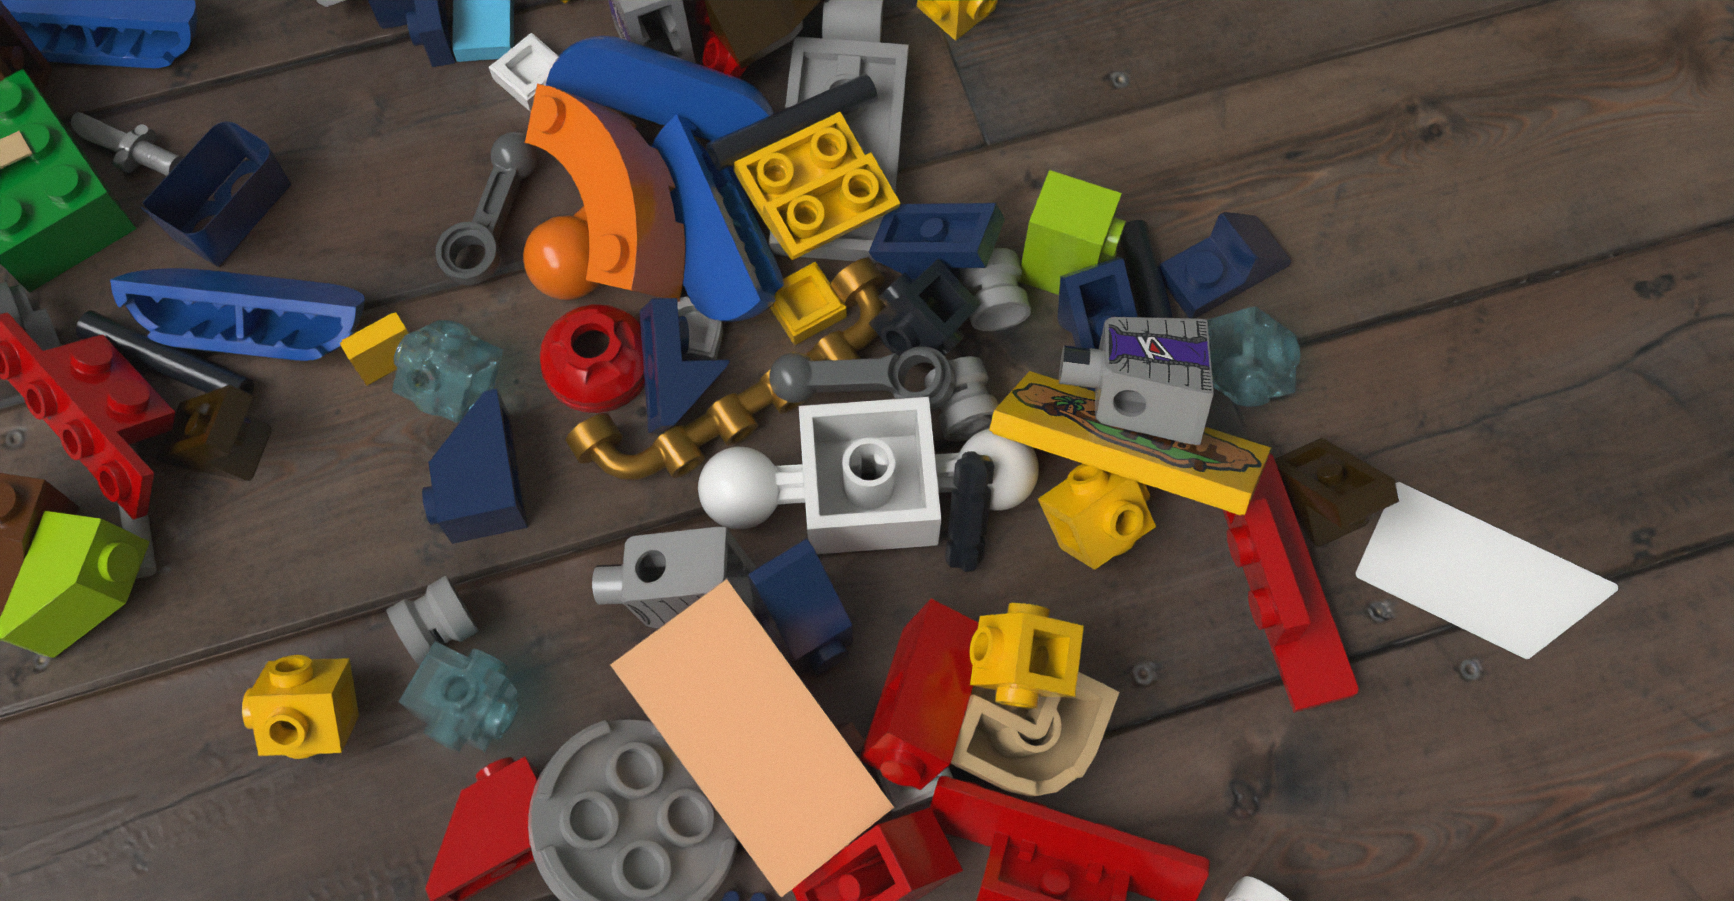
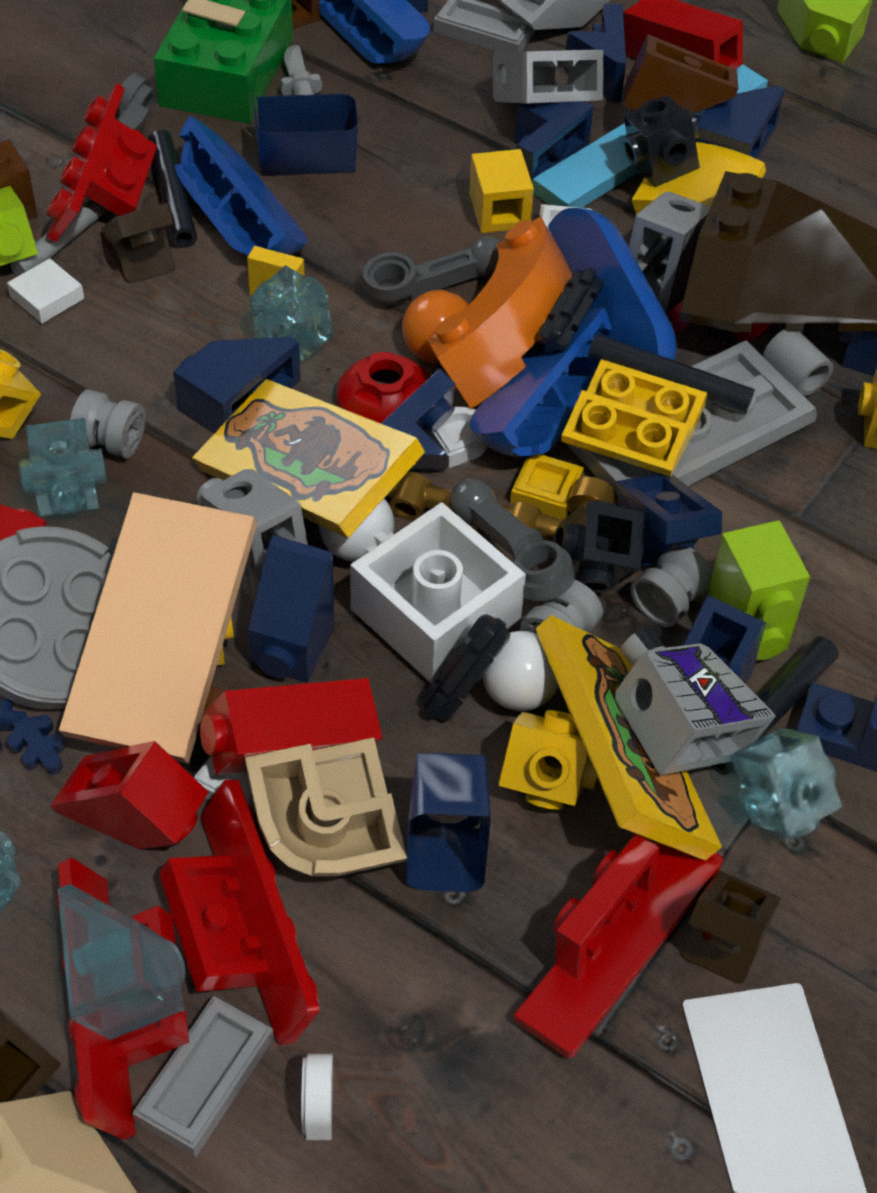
camera: 50 degrees right, 15 degrees down
(196, 565) = (45, 290): none -> white tile
(446, 86) = (500, 189): none -> yellow brick
(643, 474) = (314, 452): none -> tile
(665, 144) = (570, 310): none -> black axle
(1026, 655) = (390, 741): yellow brick -> none
(1120, 629) = (446, 855): none -> dark blue piece

